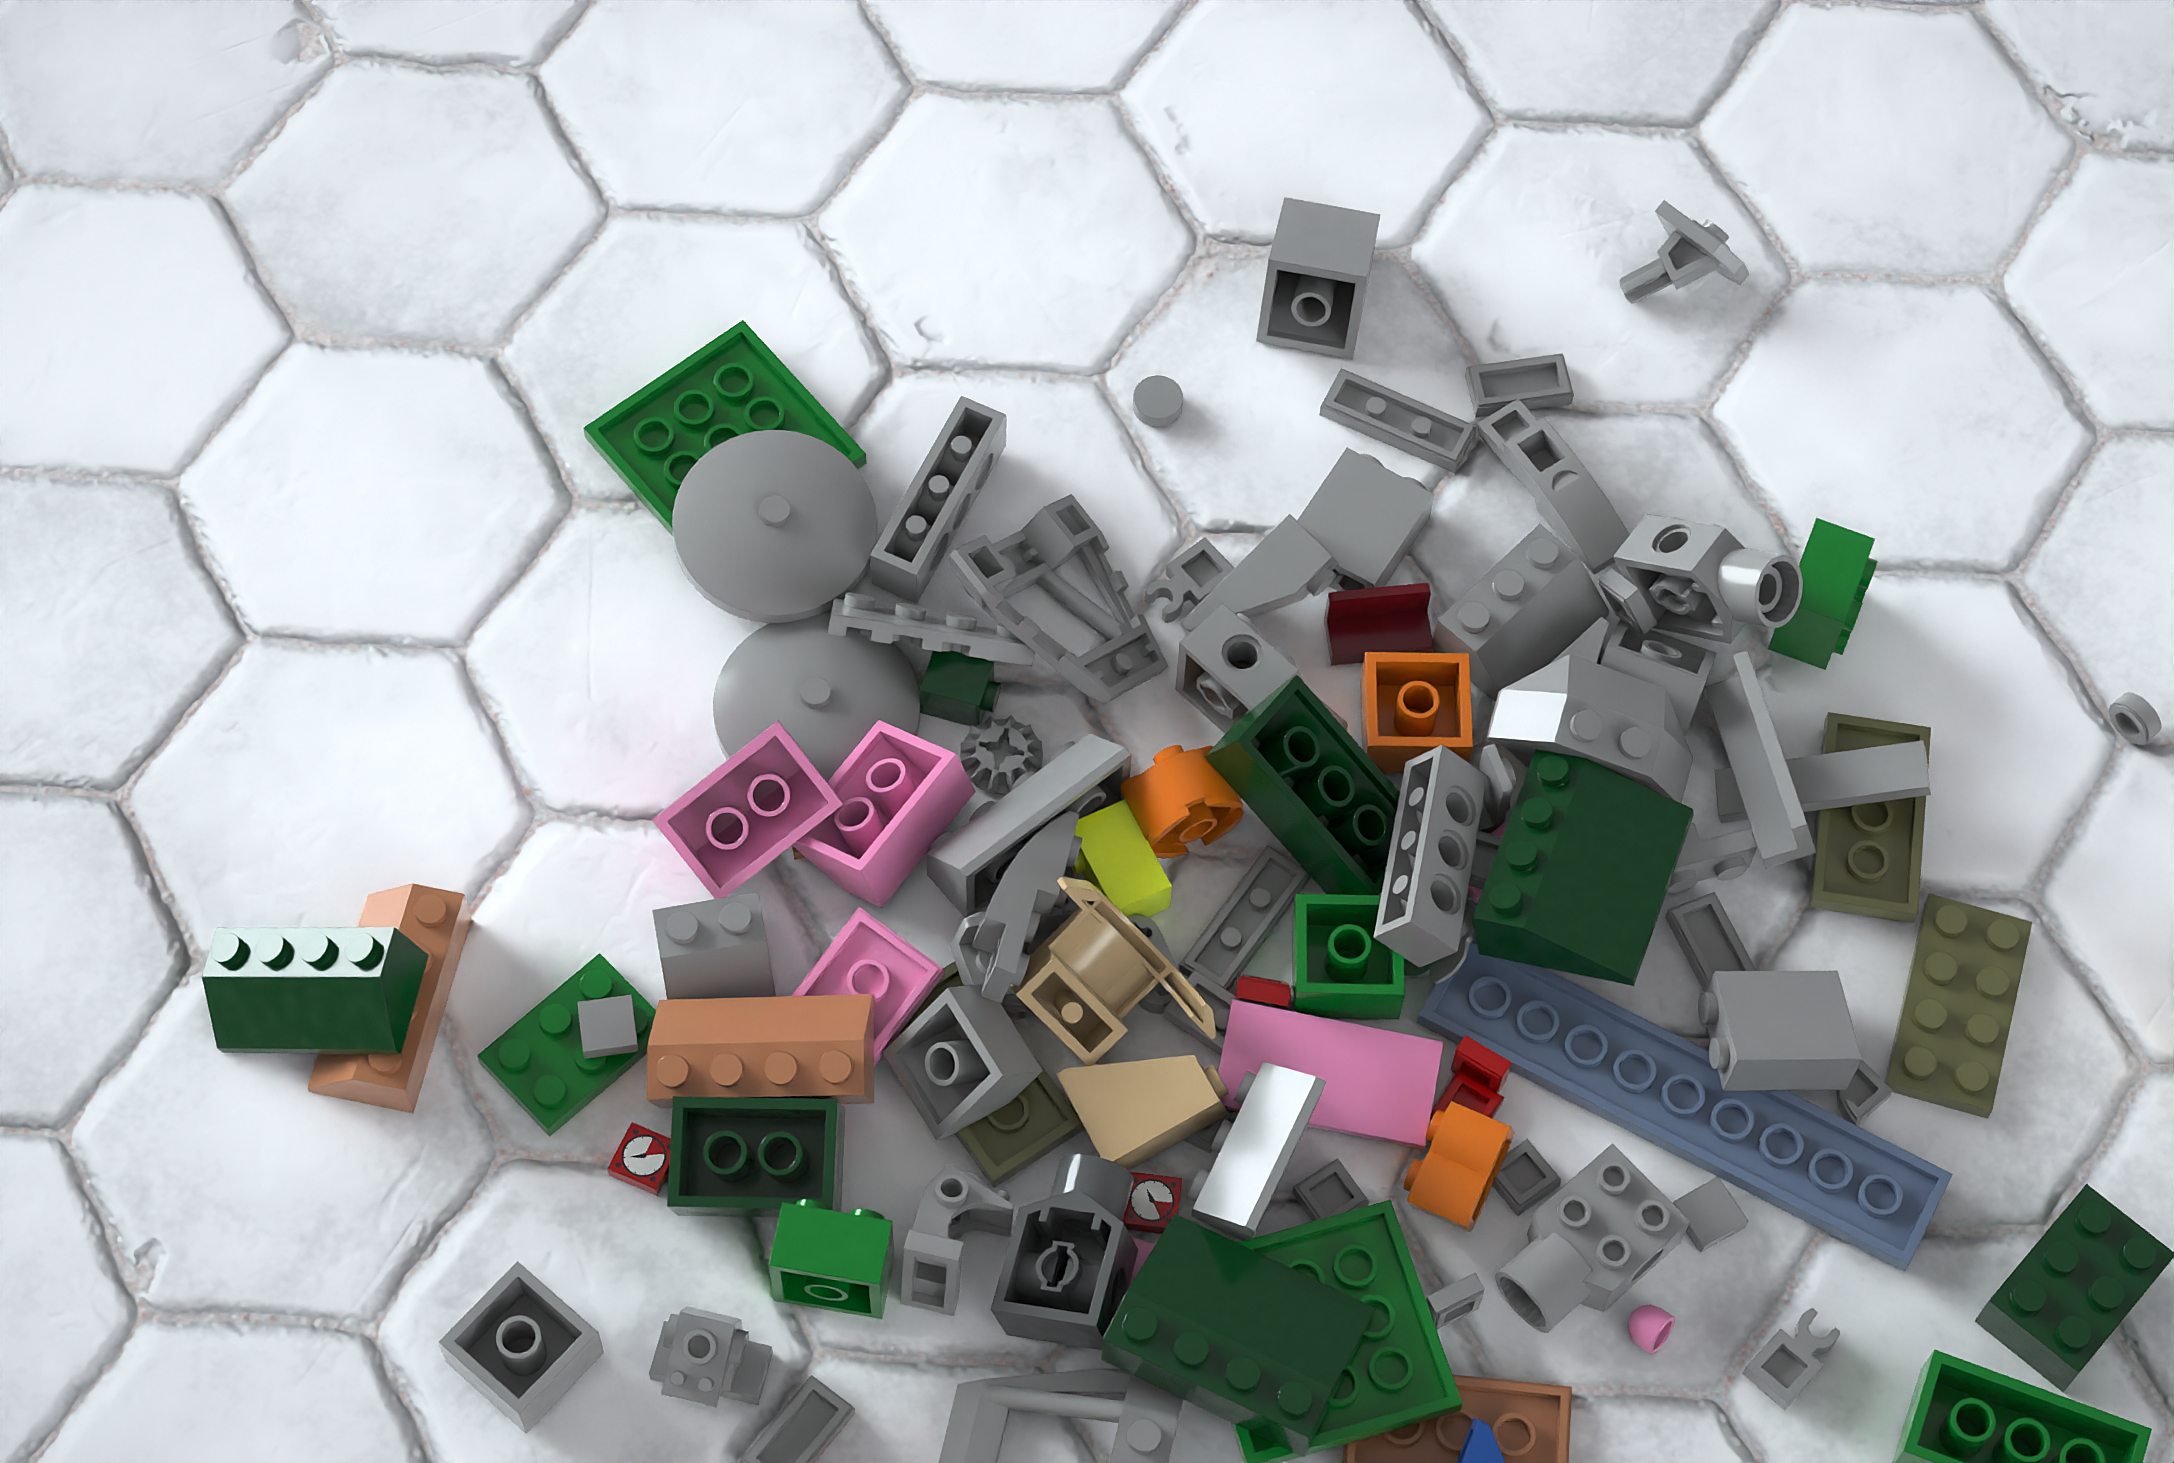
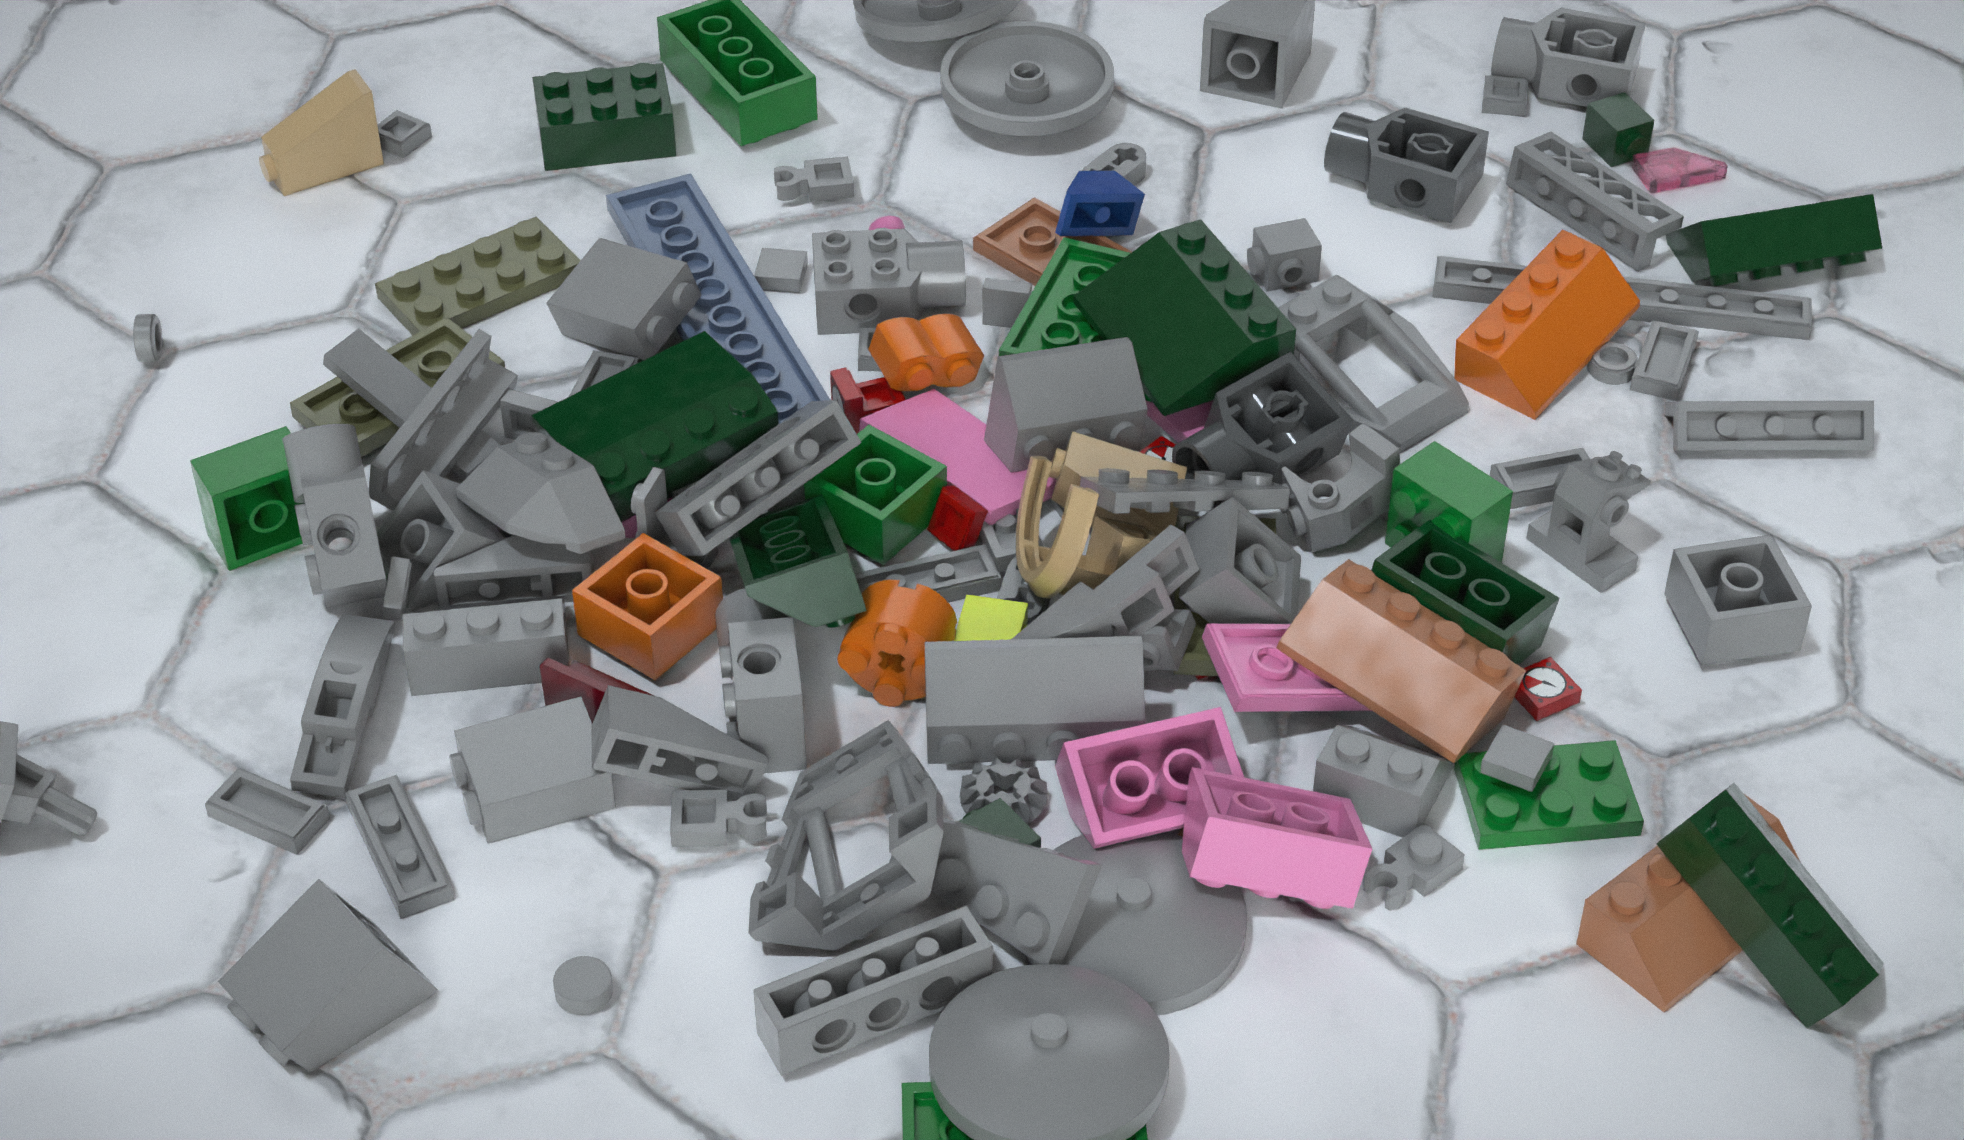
camera: 140 degrees left, 20 degrees down
(632, 901) = (1417, 862): none -> light grey plate
(1079, 1067) = (1161, 487): none -> light grey wing

